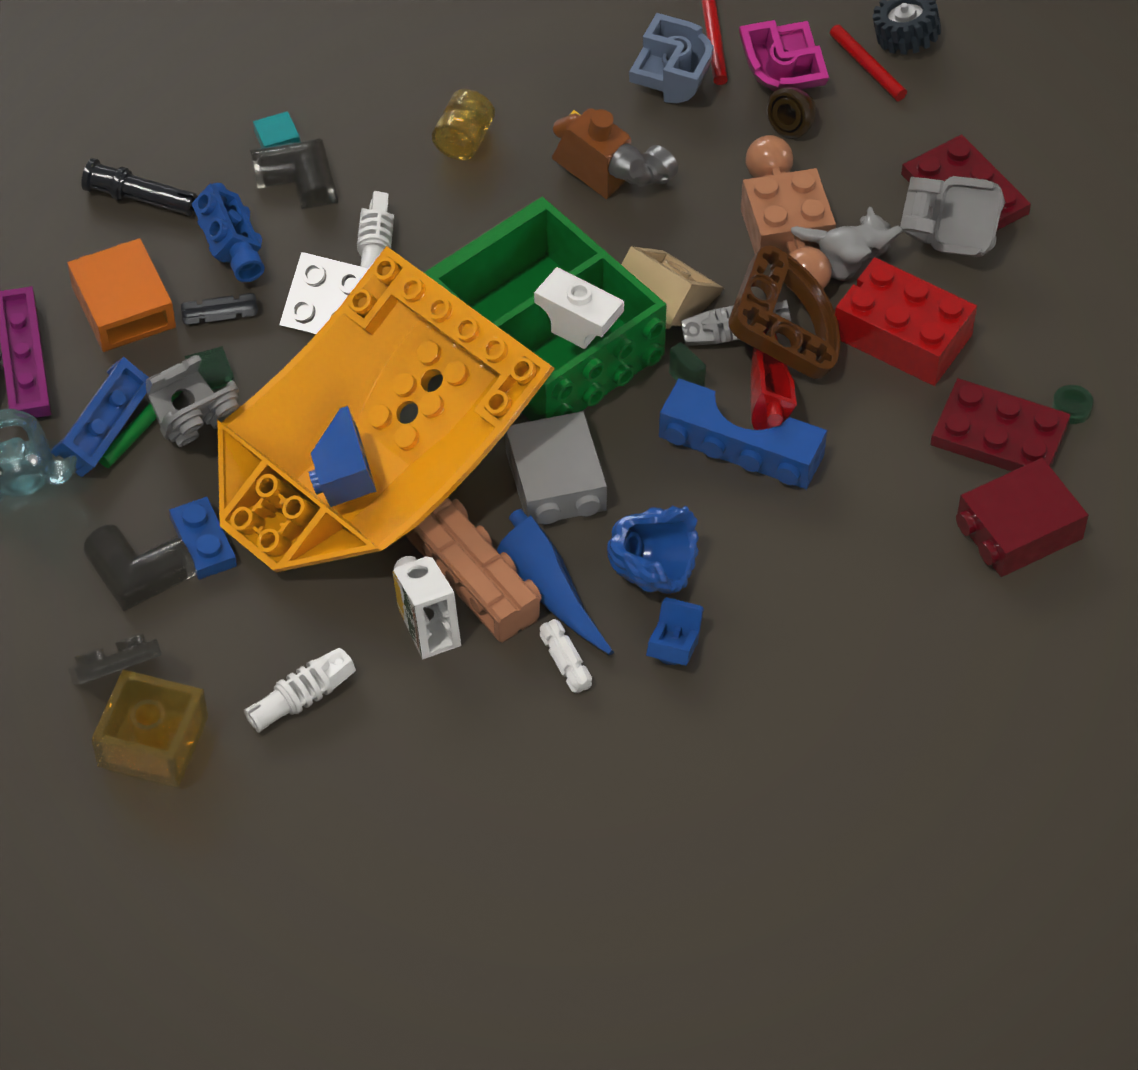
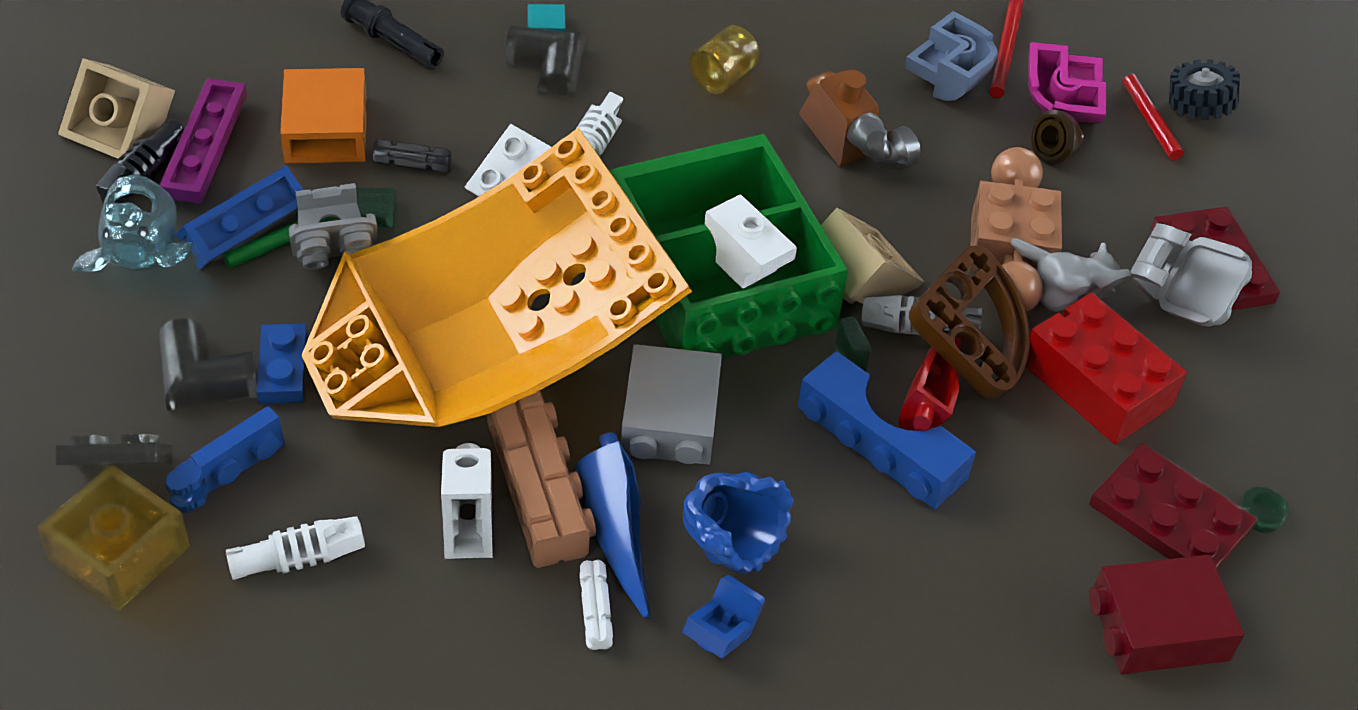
camera: 15 degrees right, 5 degrees down
(203, 634) = (224, 459): none -> blue hinge
(229, 231) = (455, 88): blue brick -> none
(341, 462) = (445, 325): blue slope -> none

